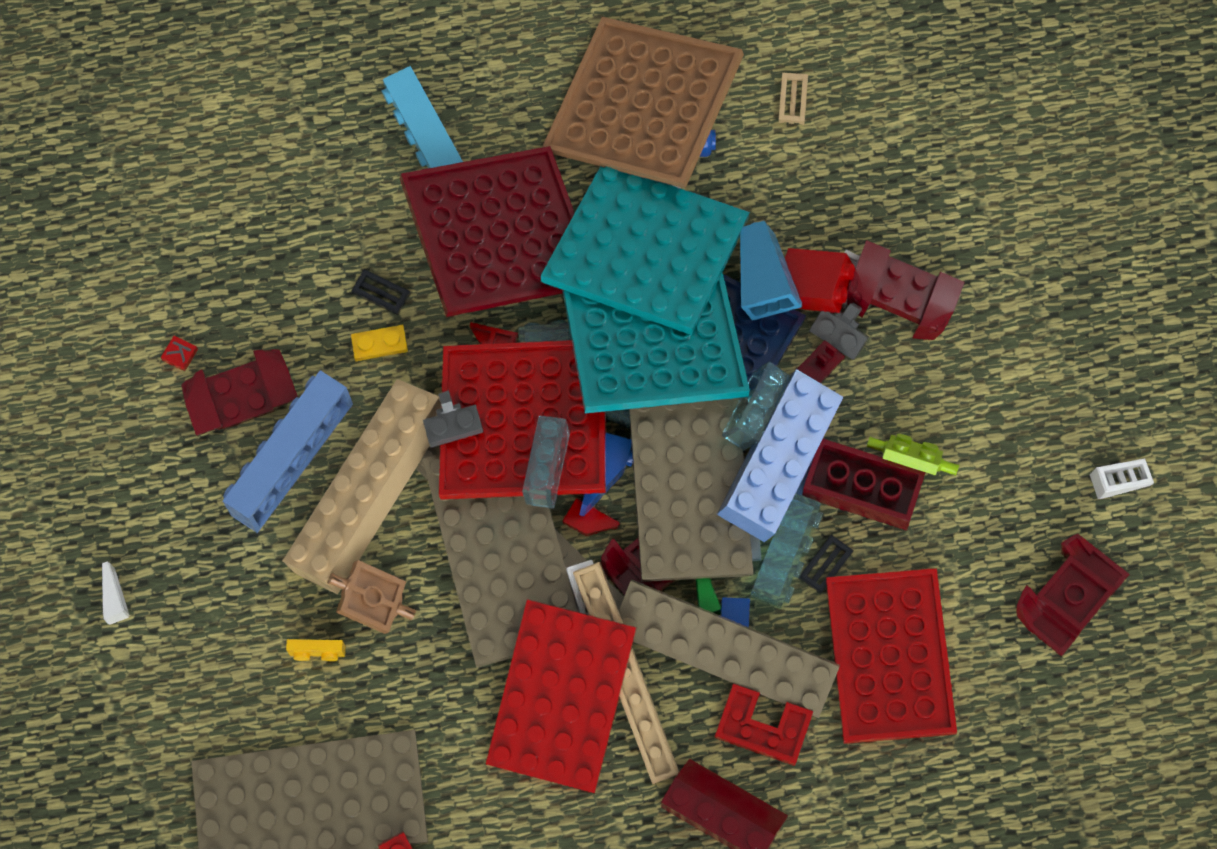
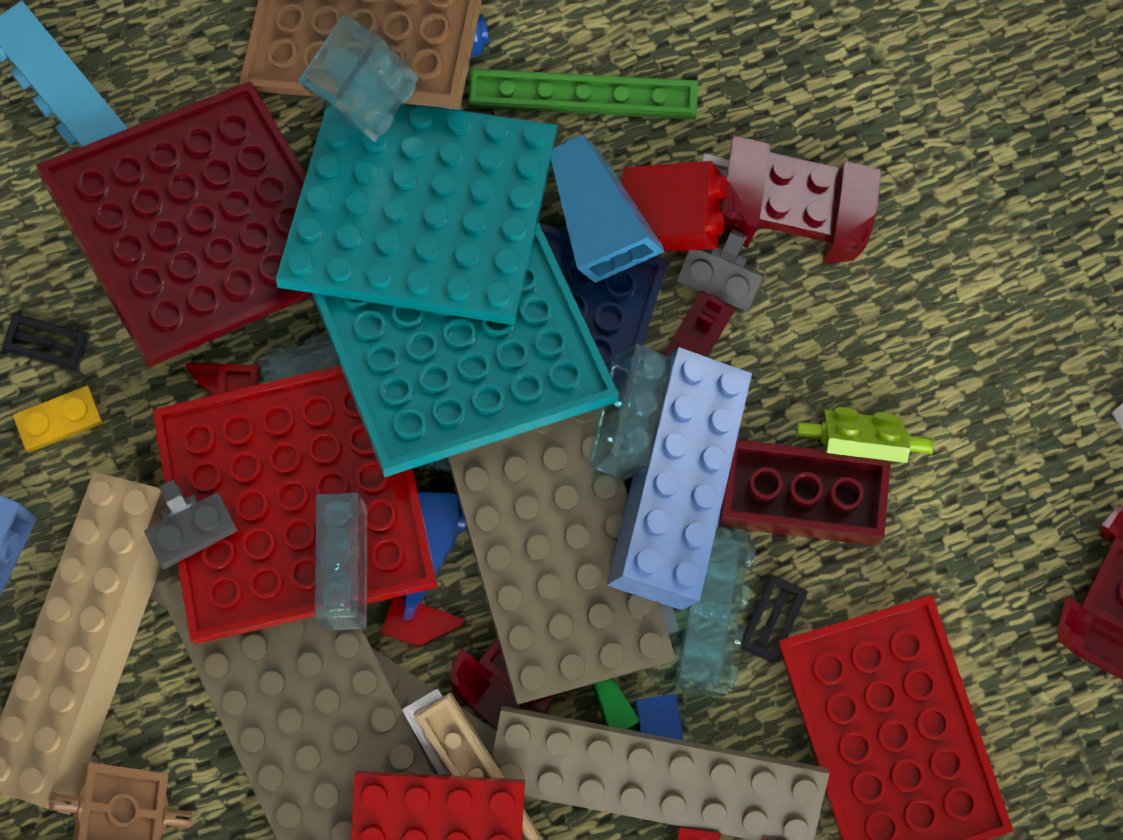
camera: 20 degrees left, 5 degrees up
(622, 156) = (359, 78): none -> clear light blue brick
(772, 195) = (583, 94): none -> bright green tile

